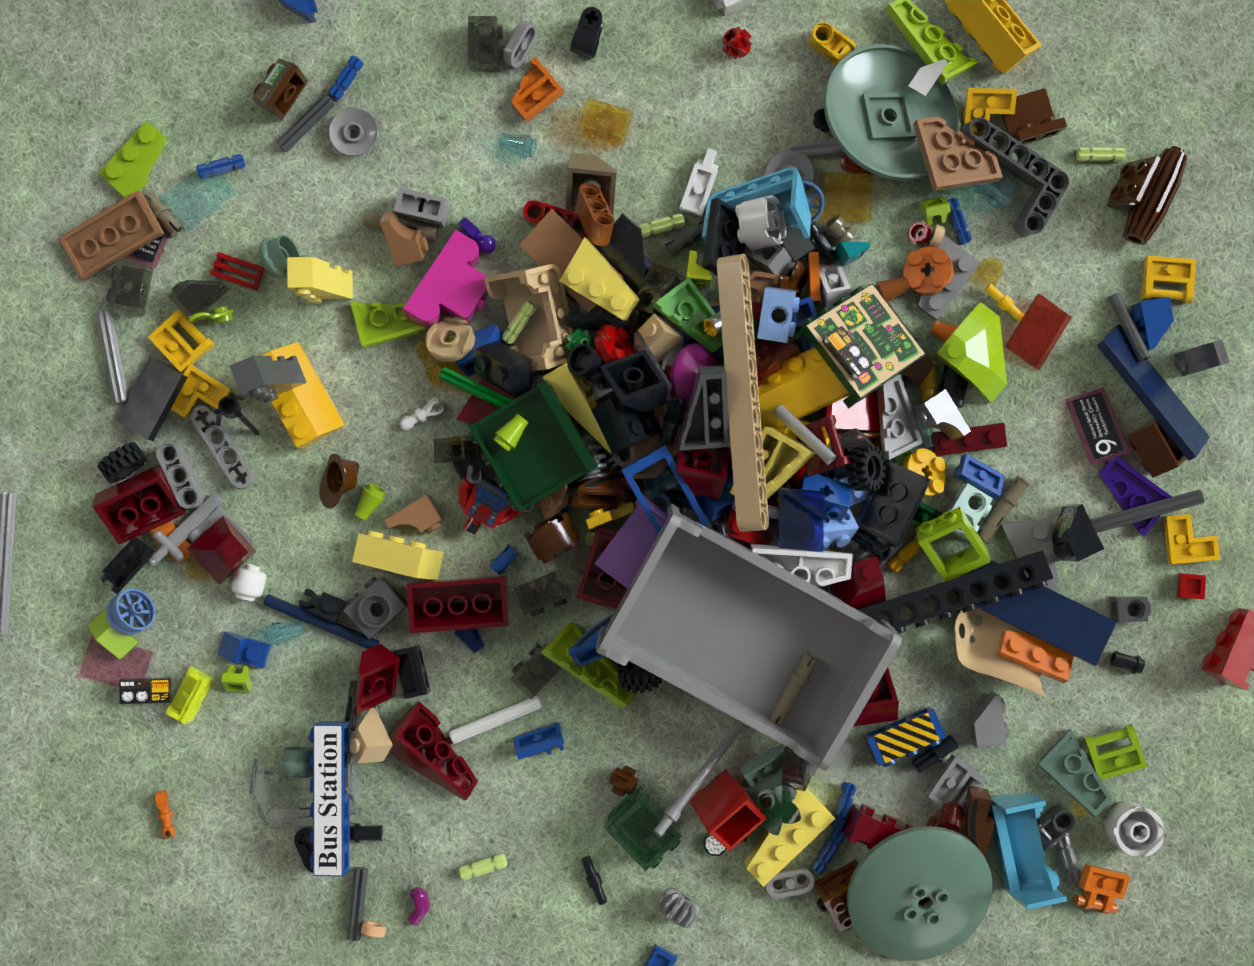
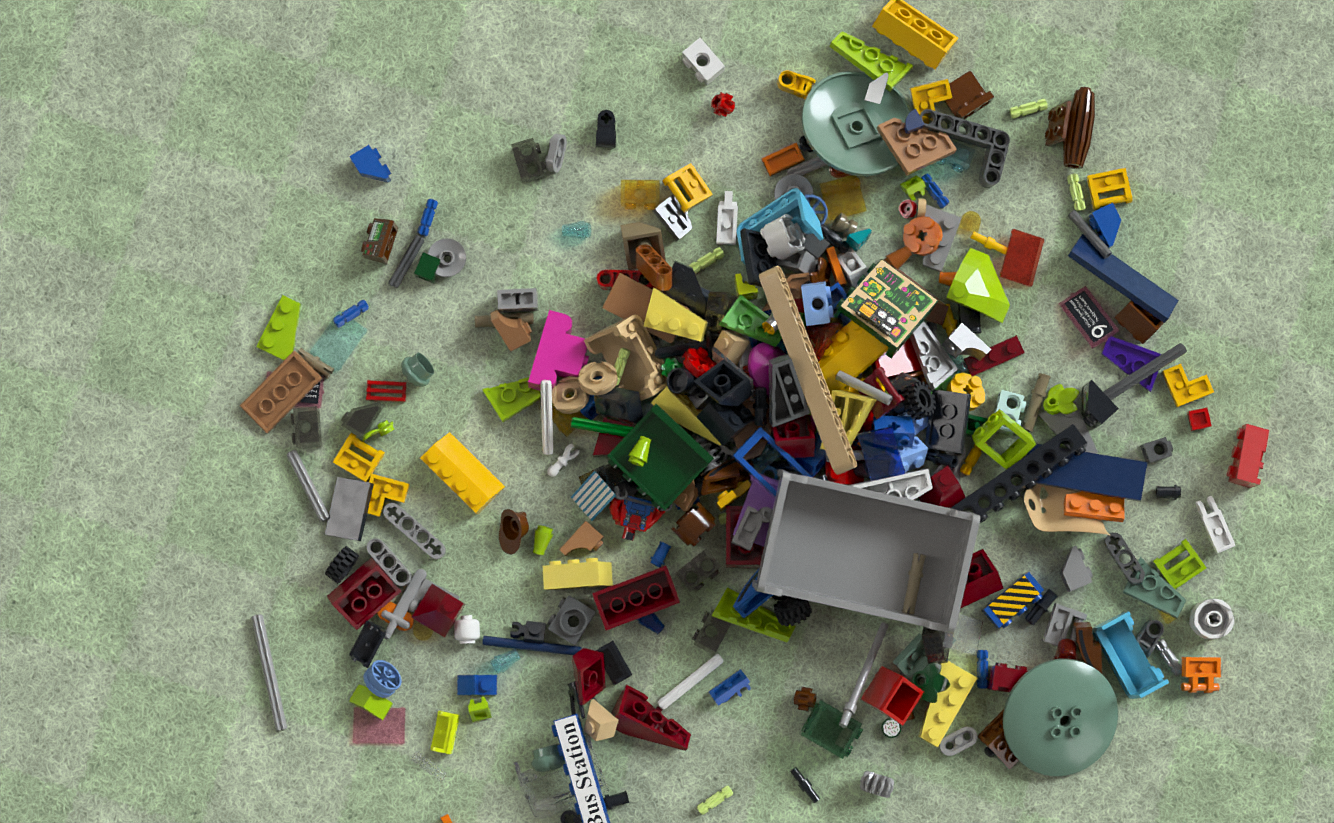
camera: 15 degrees left, 5 degrees down
(145, 690) = (409, 739): tile -> none
(231, 409) = (417, 497): black plant -> none
(265, 379) = (443, 462): dark grey wedge -> none
(316, 281) = (455, 379): light yellow wedge -> none
(325, 137) = (427, 267): none -> dark green panel
(415, 357) = (546, 413): none -> white axle
(442, 468) = (593, 496): none -> sticker
(485, 242) = (574, 313): dark purple plate -> none
(489, 339) = (601, 386): none -> tan tile
(536, 91) = (579, 185): orange wing -> none
(618, 560) = (750, 526): none -> light grey hinge
(638, 160) = (673, 217): none -> wing
(671, 129) = (692, 184): none -> yellow plate
(686, 238) = (729, 264): dark grey pin -> none
(788, 131) = (783, 159): none -> orange tile
(828, 851) = (981, 707): blue axle -> none
(960, 128) = (913, 122): none -> dark blue tile
(980, 476) = (1010, 381): blue plate -> none
(1035, 516) = (1061, 400): none -> lime plate
(1050, 746) = (1137, 568): none -> dark grey beam
(1127, 272) = (1076, 192): none -> yellowish green axle
(1172, 719) = (1215, 526): none -> white hinge
(1201, 358) = (1151, 242): flat silver arch -> none

